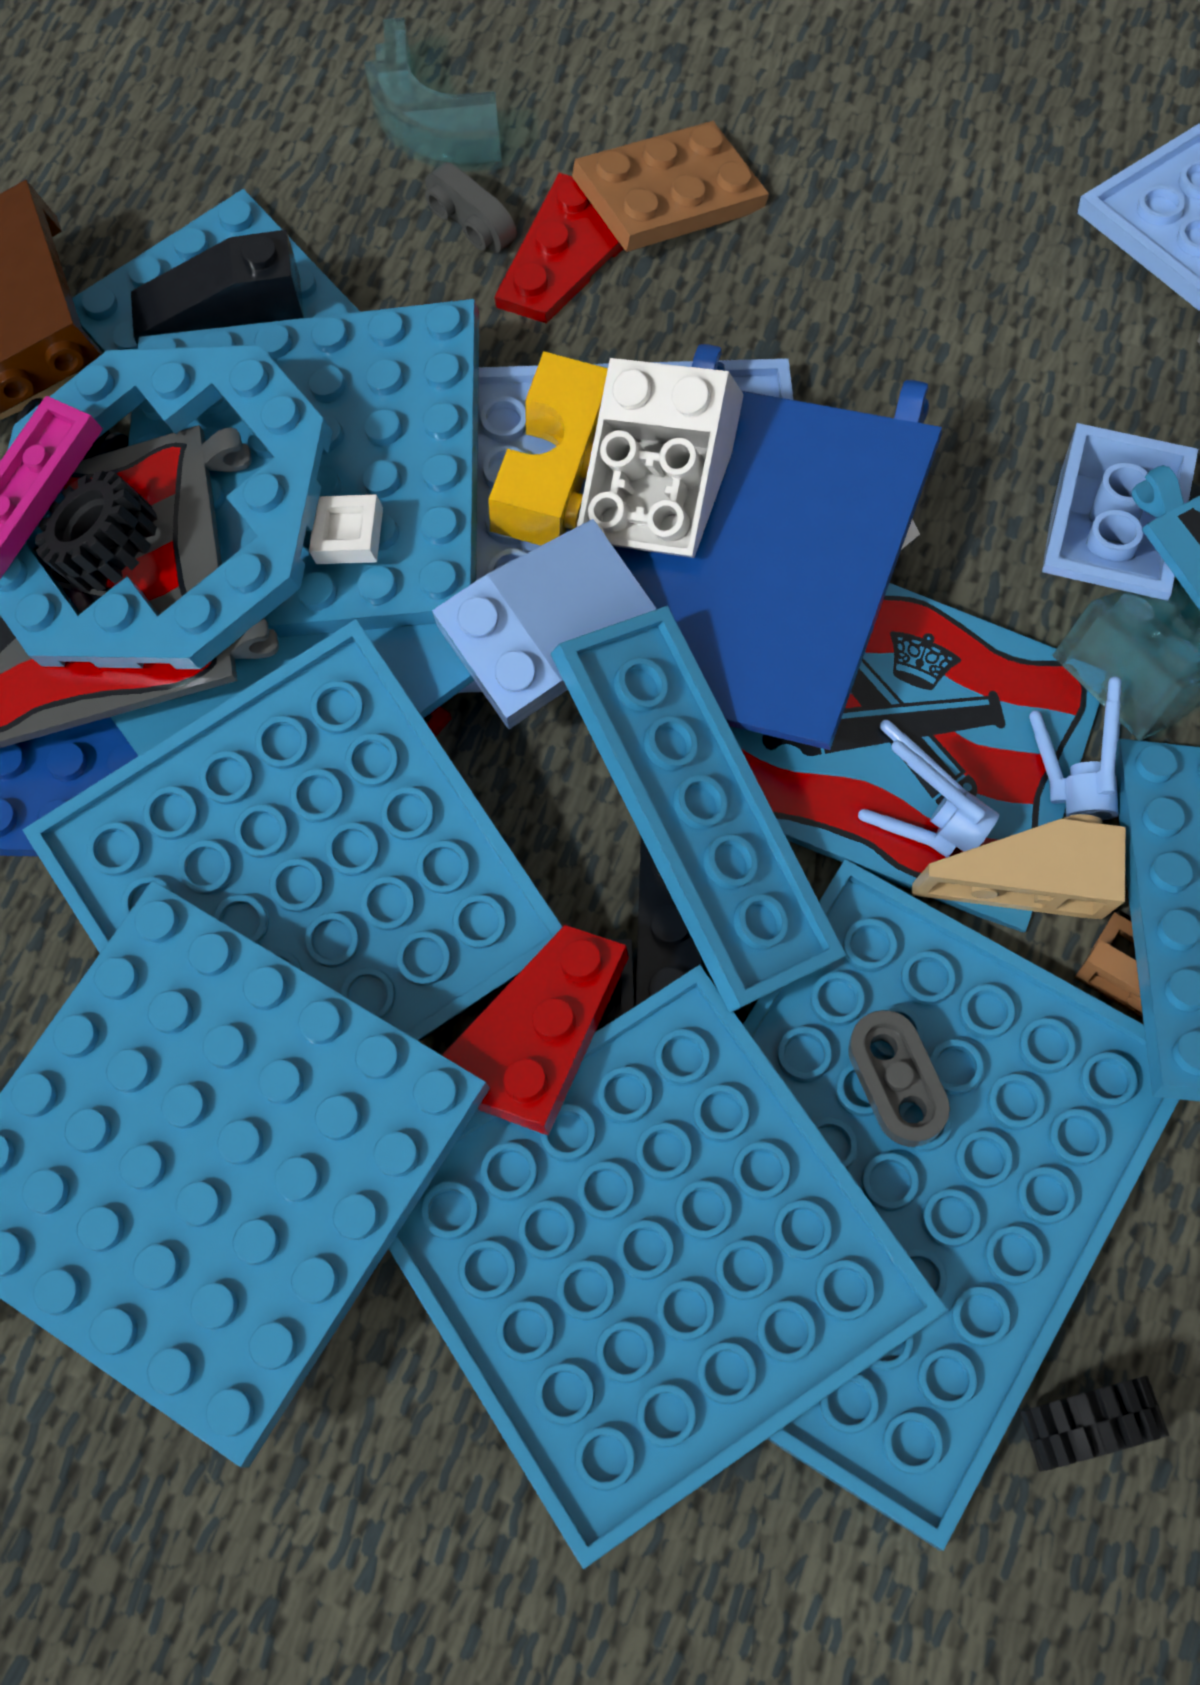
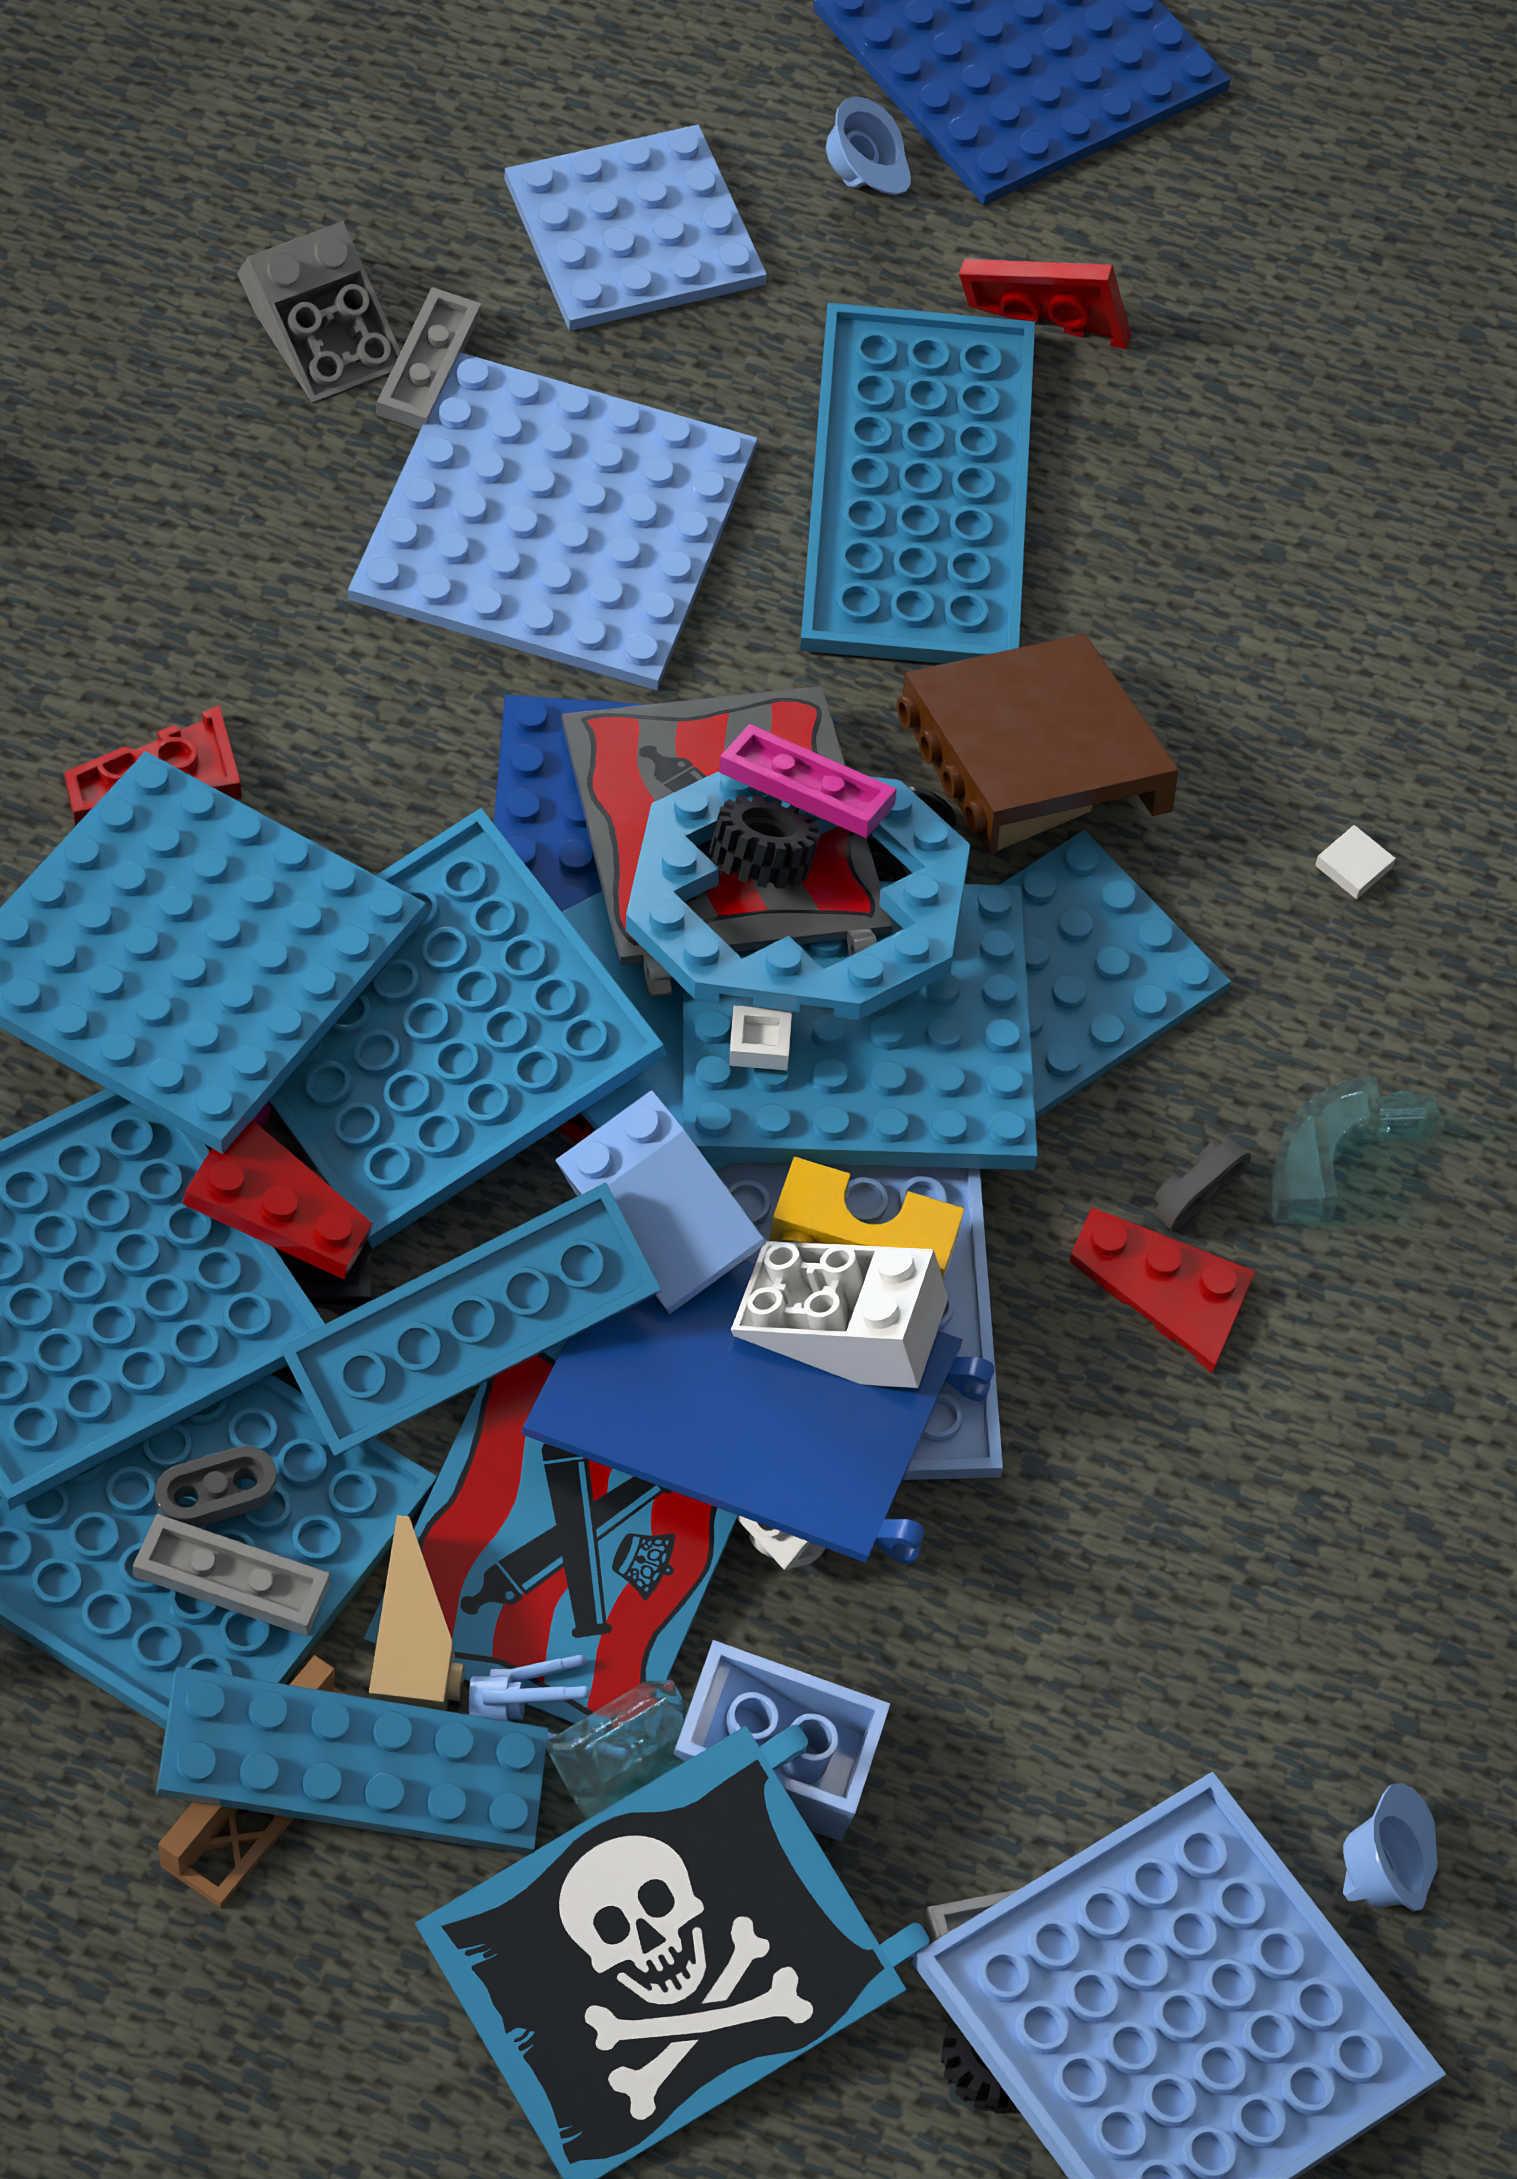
camera: 80 degrees right, 10 degrees down
(111, 98) = (1355, 861): none -> white tile
(224, 286) = (1074, 956): black slope -> none
(669, 185) = (1233, 1372): medium nougat plate -> none
(960, 816) = (465, 1566): light blue plant -> none
(1003, 1055) = (231, 1575): none -> light grey plate
(1141, 88) = (1393, 1852): none -> light blue piece

